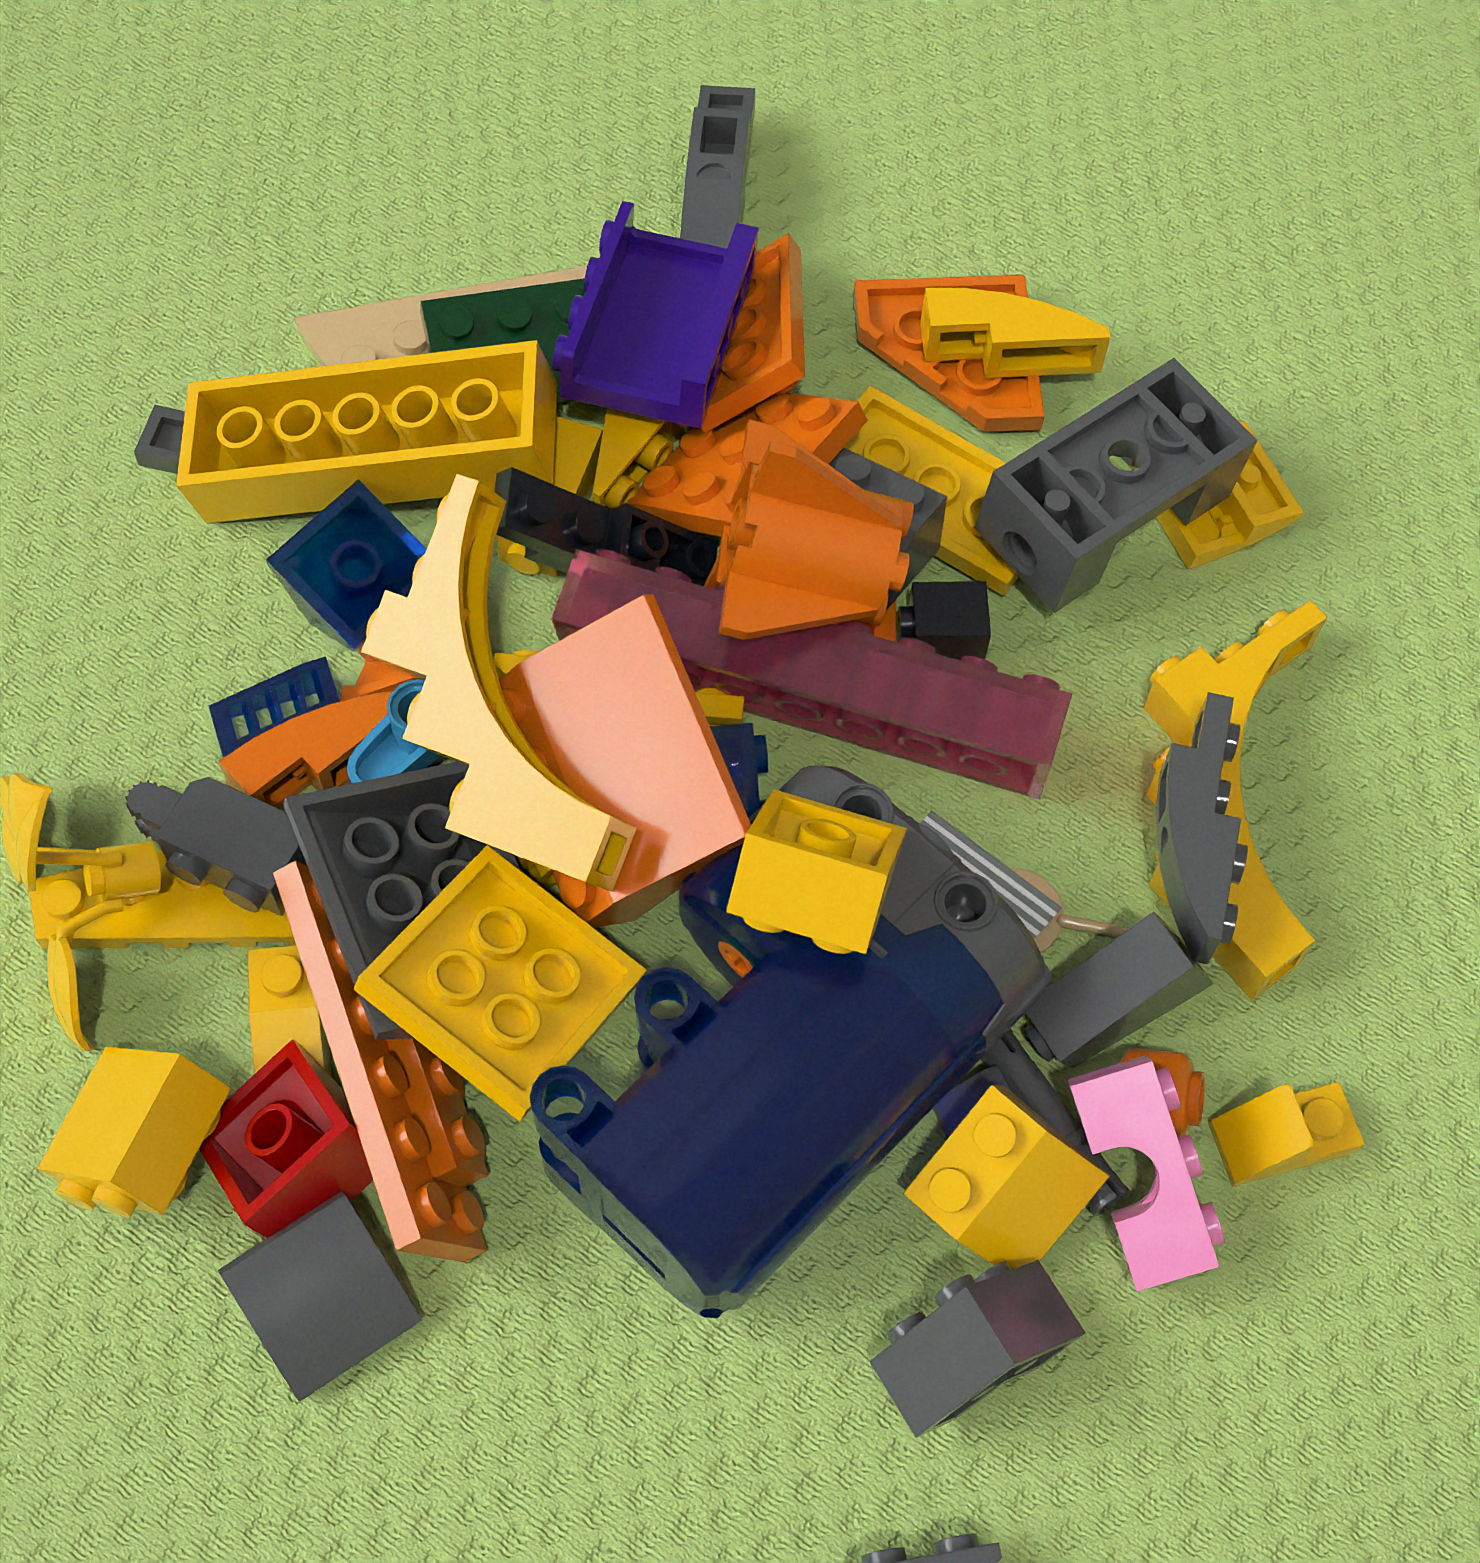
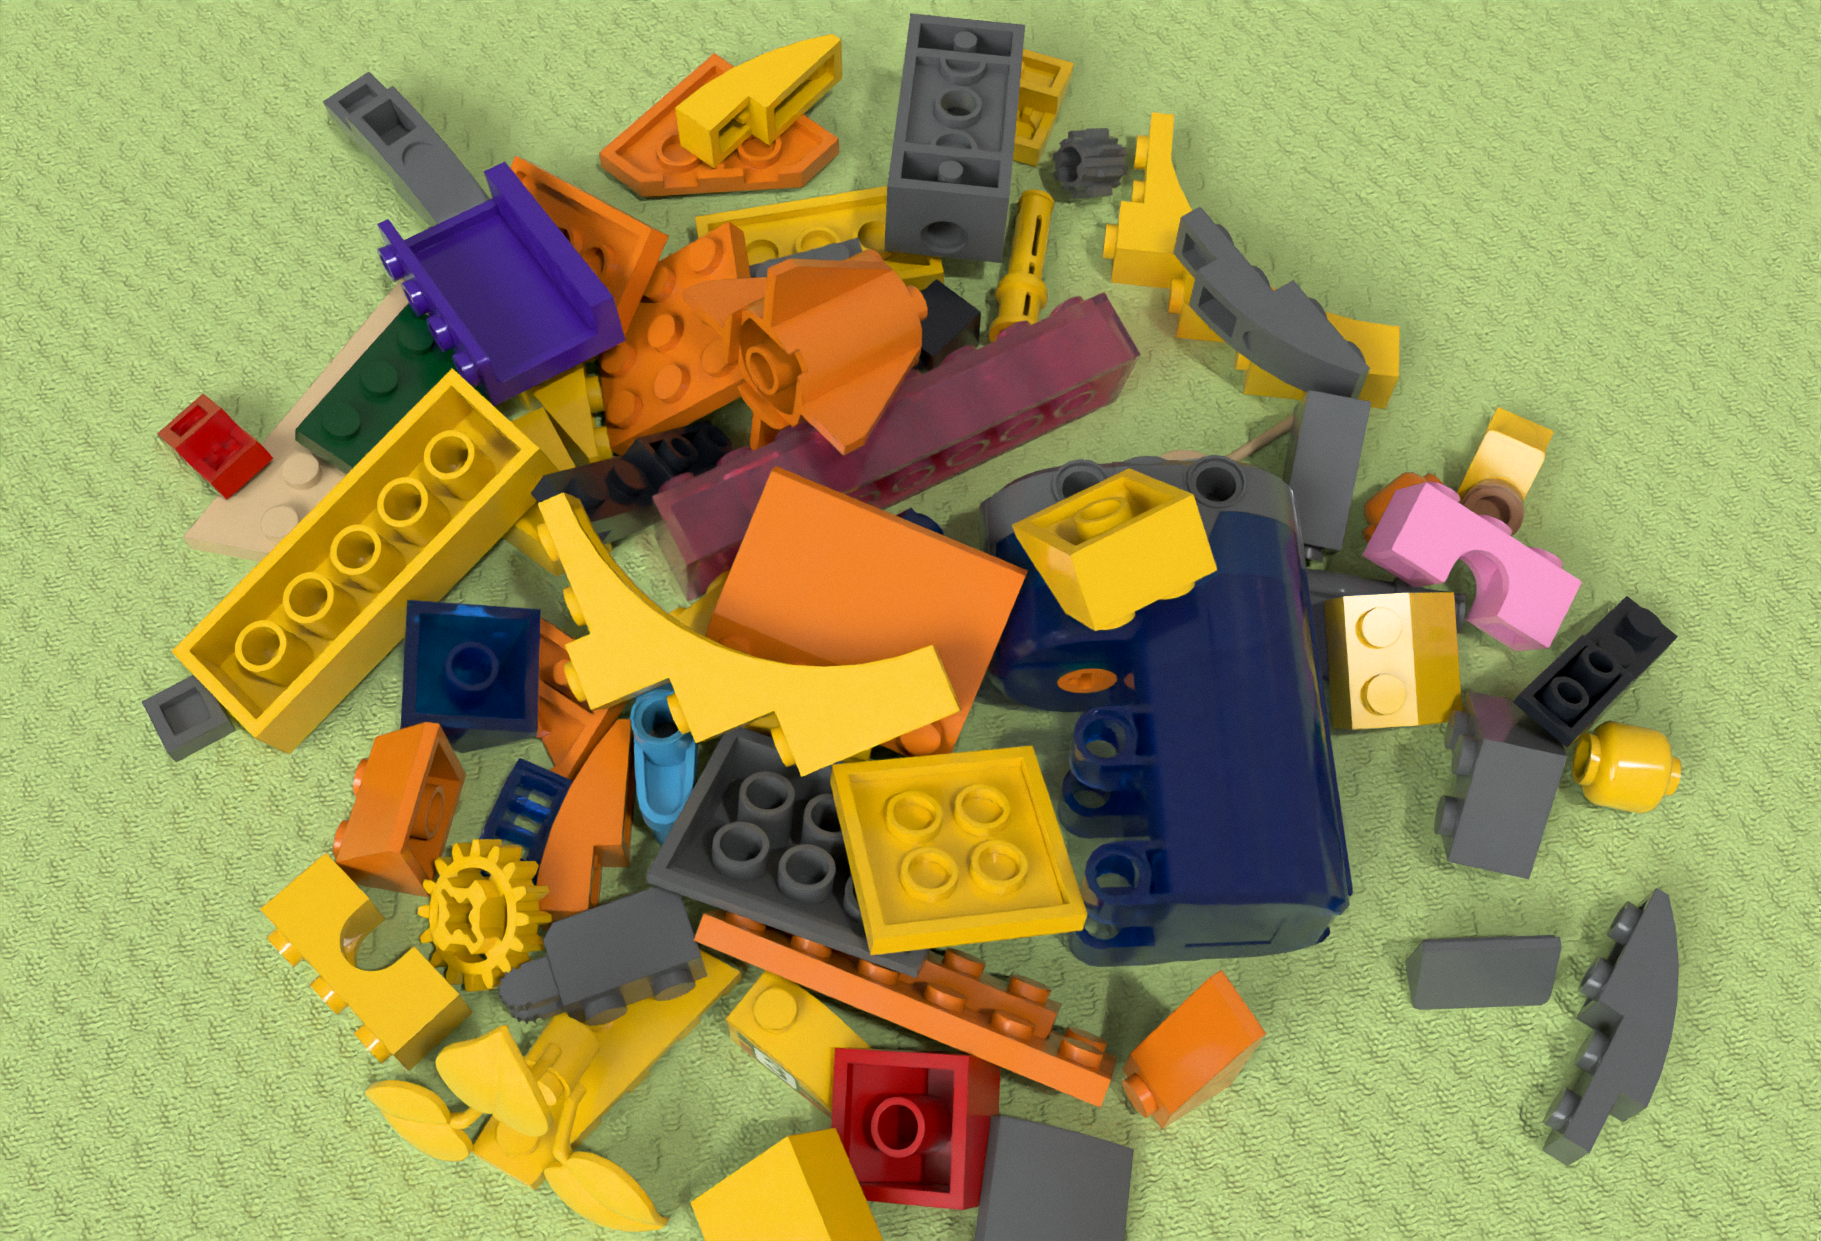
camera: 45 degrees left, 0 degrees up
(94, 653) = (402, 1006): none -> yellow arch
(192, 732) = (483, 913): none -> yellow gear
(220, 625) = (401, 810): none -> orange slope
(378, 273) = (215, 446): none -> red slope
(511, 1291) = (1192, 1053): none -> orange slope
(807, 1468) = (1483, 972): none -> dark grey slope
(1059, 648) = (1022, 291): none -> yellow pin
(1097, 1440) = (1625, 767): none -> yellow head
(1145, 1347) = (1595, 671): none -> black slope
(1221, 599) = (1090, 163): none -> dark grey gear
(1231, 1152) = (1496, 500): none -> medium nougat tile

